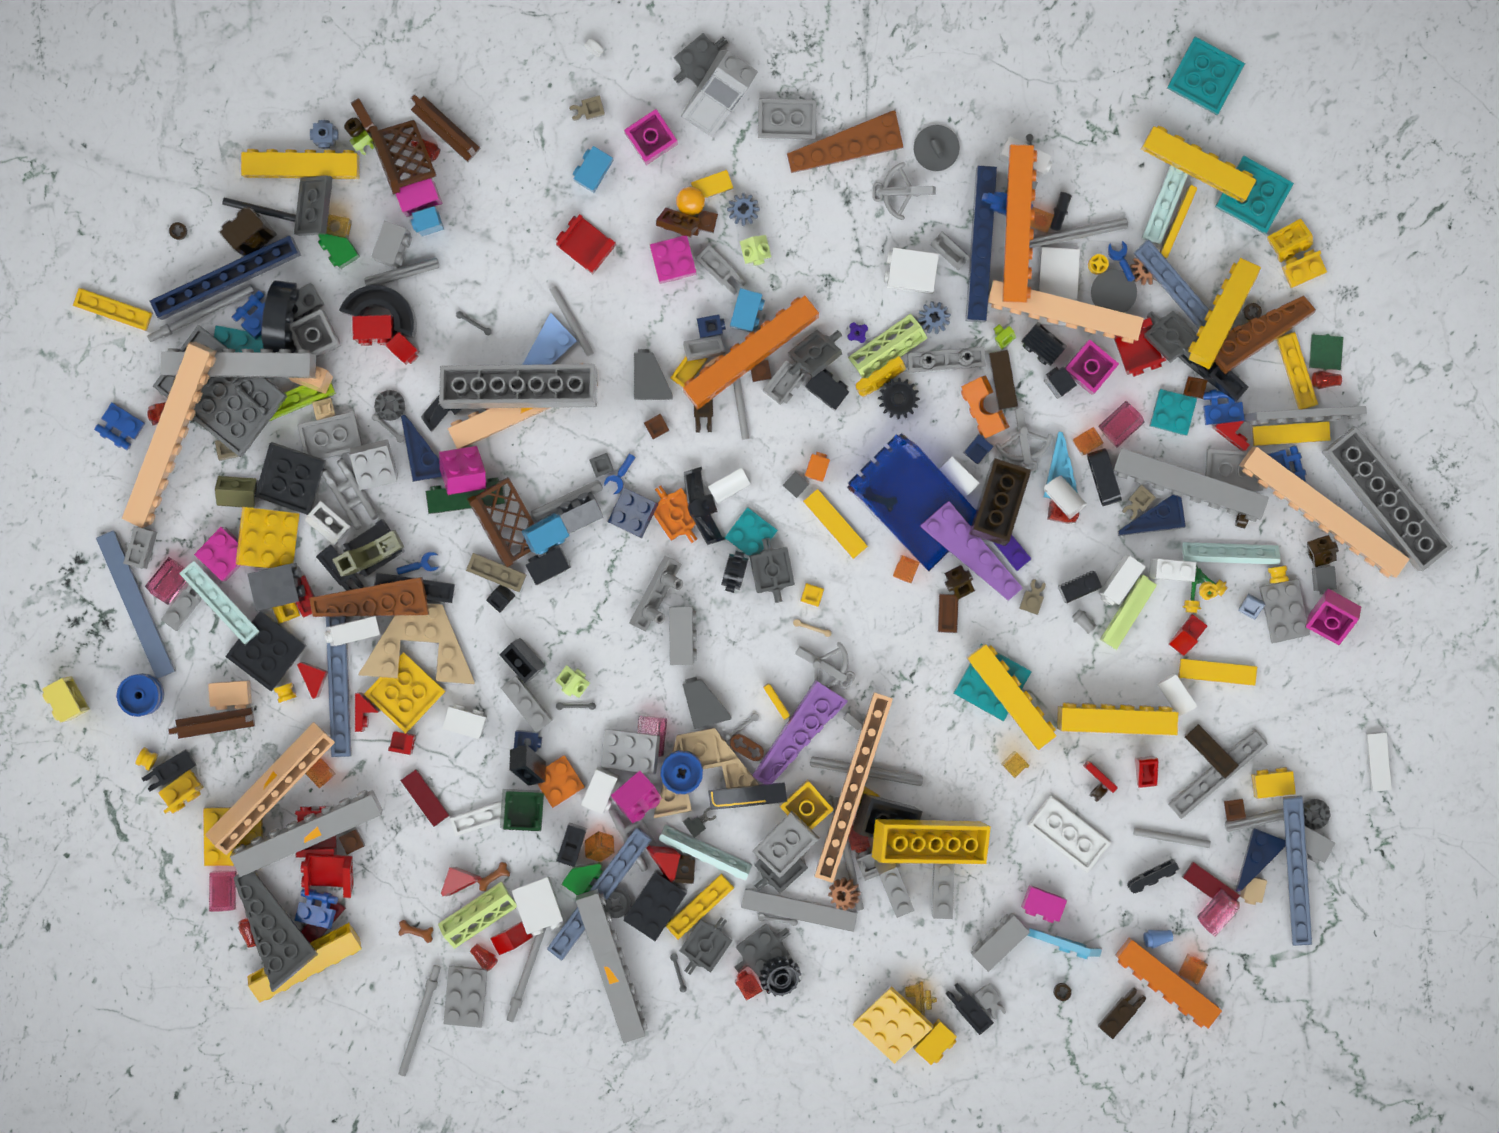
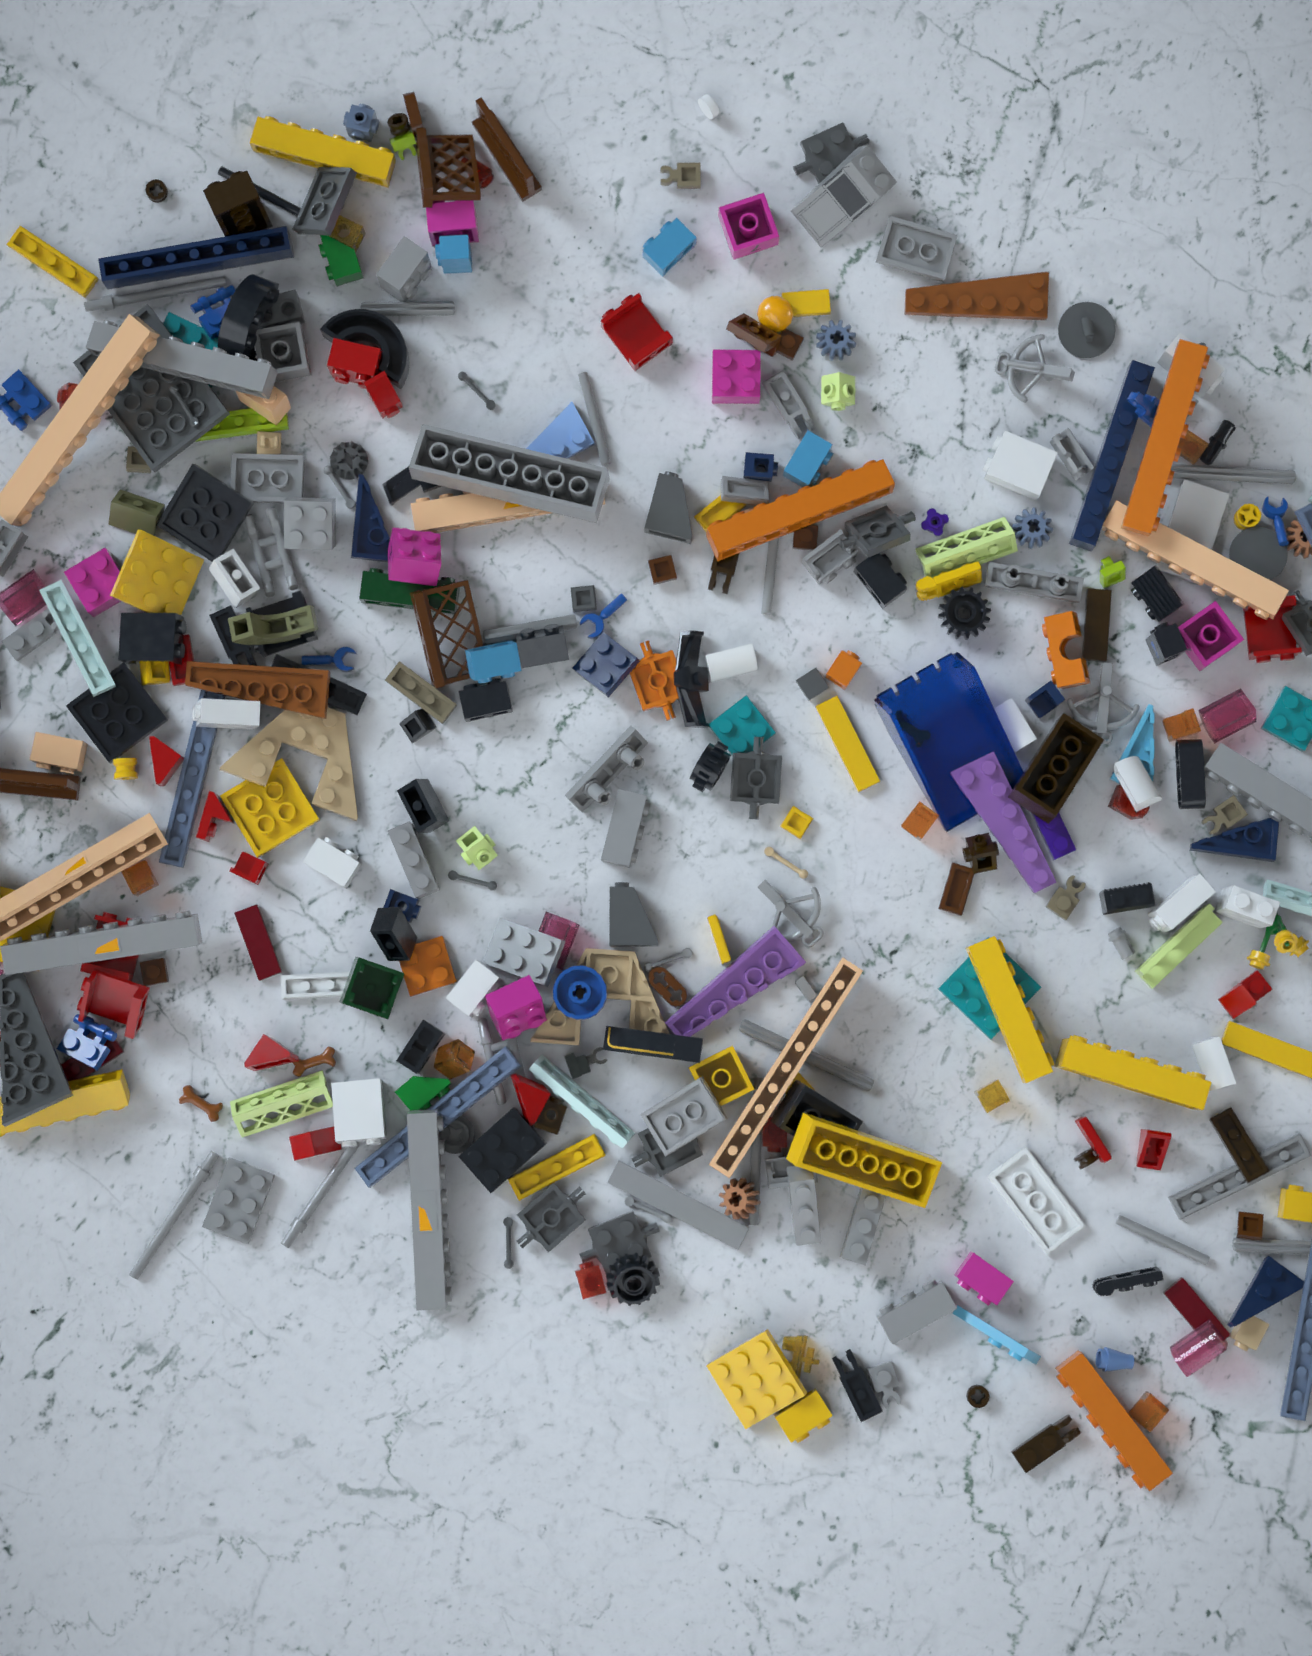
camera: 15 degrees right, 5 degrees down
(484, 957) = (275, 1158): clear red cone -> none

